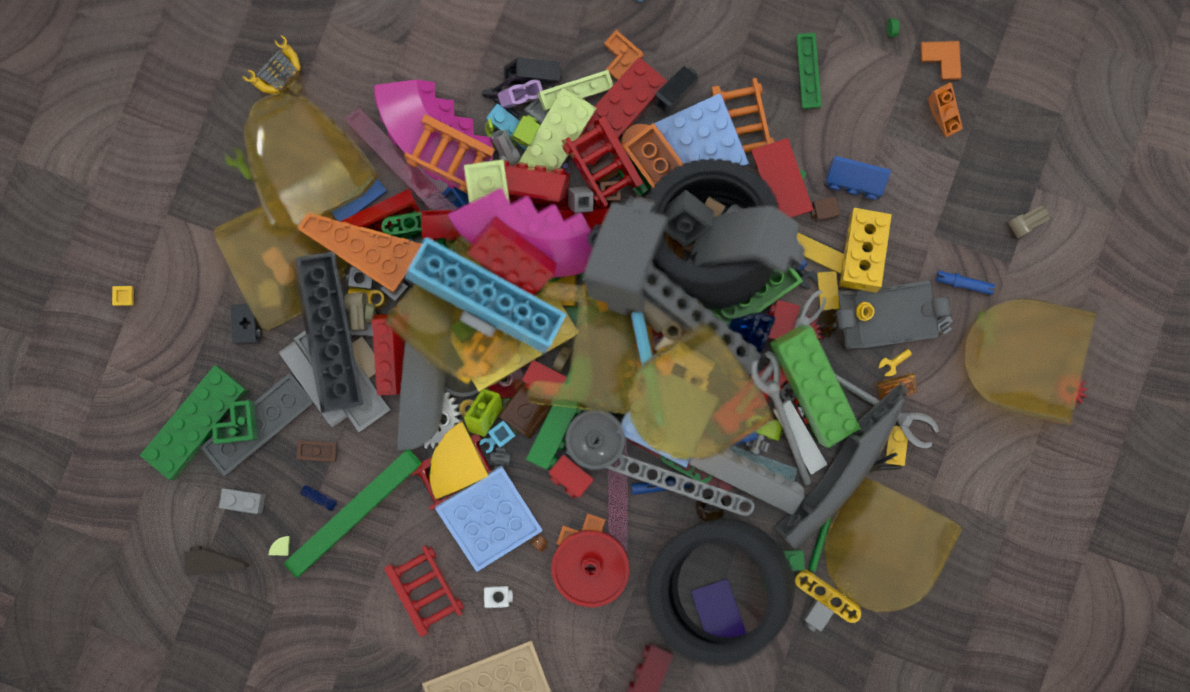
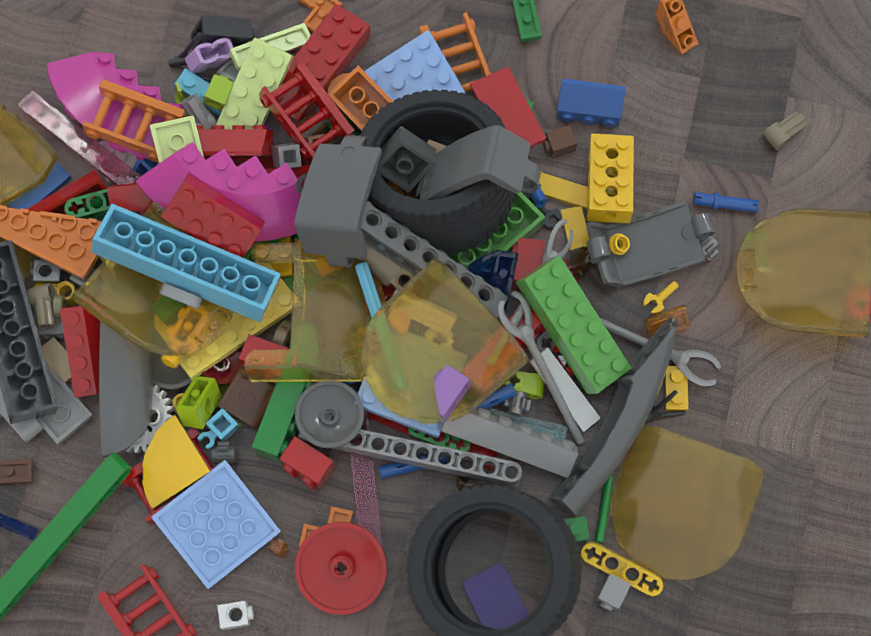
camera: 10 degrees left, 10 degrees down
(675, 89) = (379, 35): black slope -> none
(701, 433) = (449, 389): none -> medium lavender slope

